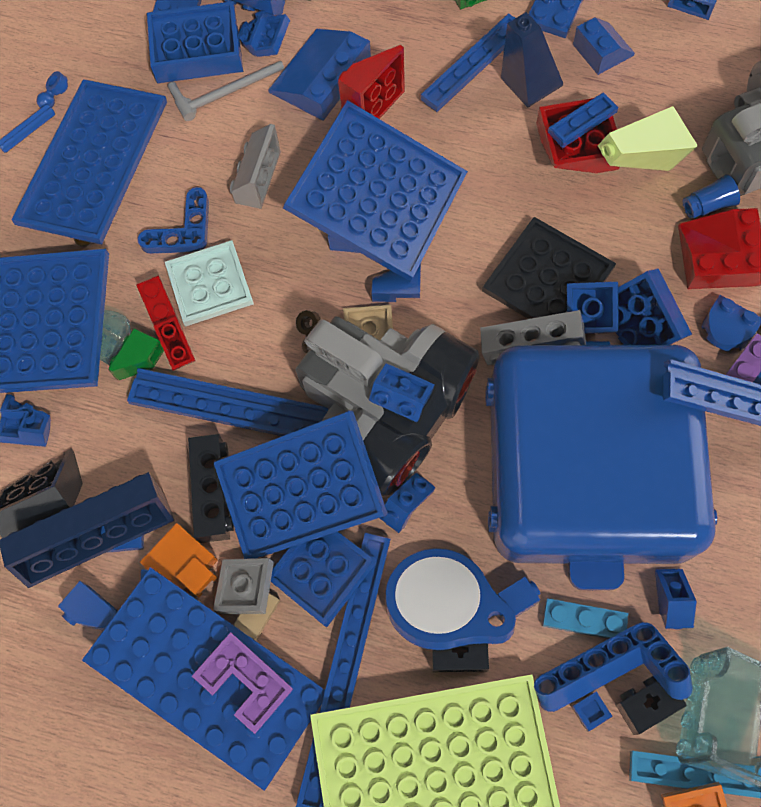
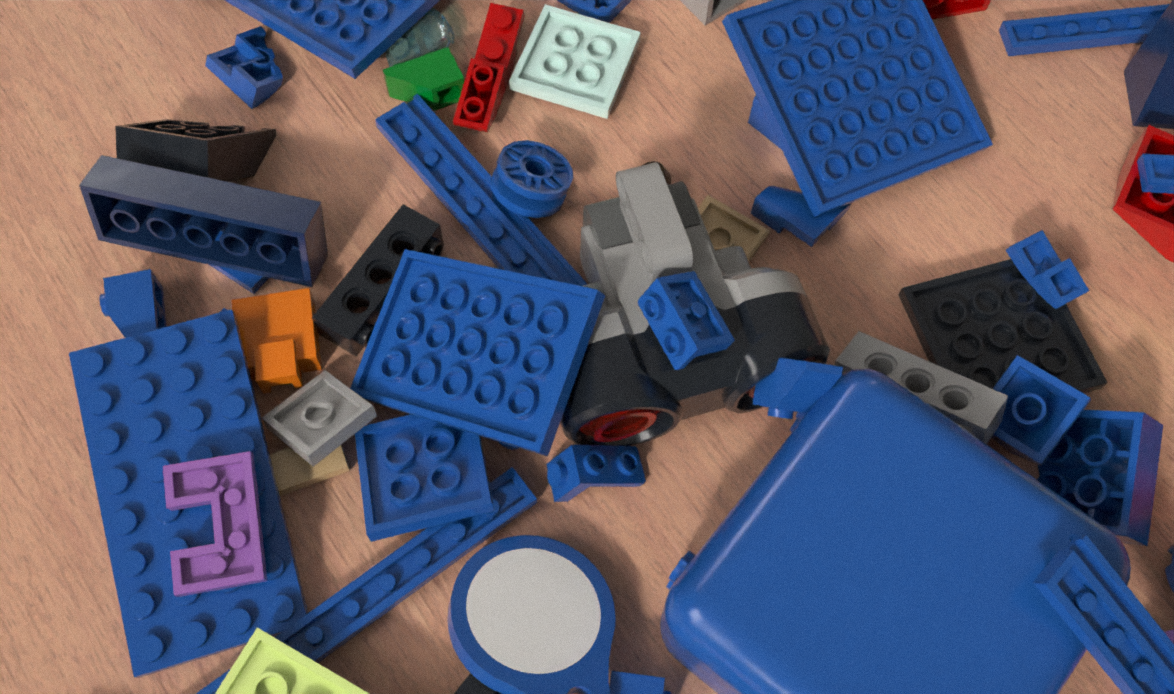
camera: 30 degrees right, 5 degrees down
(245, 370) = (531, 179): none -> blue wheel
(478, 384) = (795, 386): none -> blue slope
(551, 227) = (1040, 265): none -> blue slope

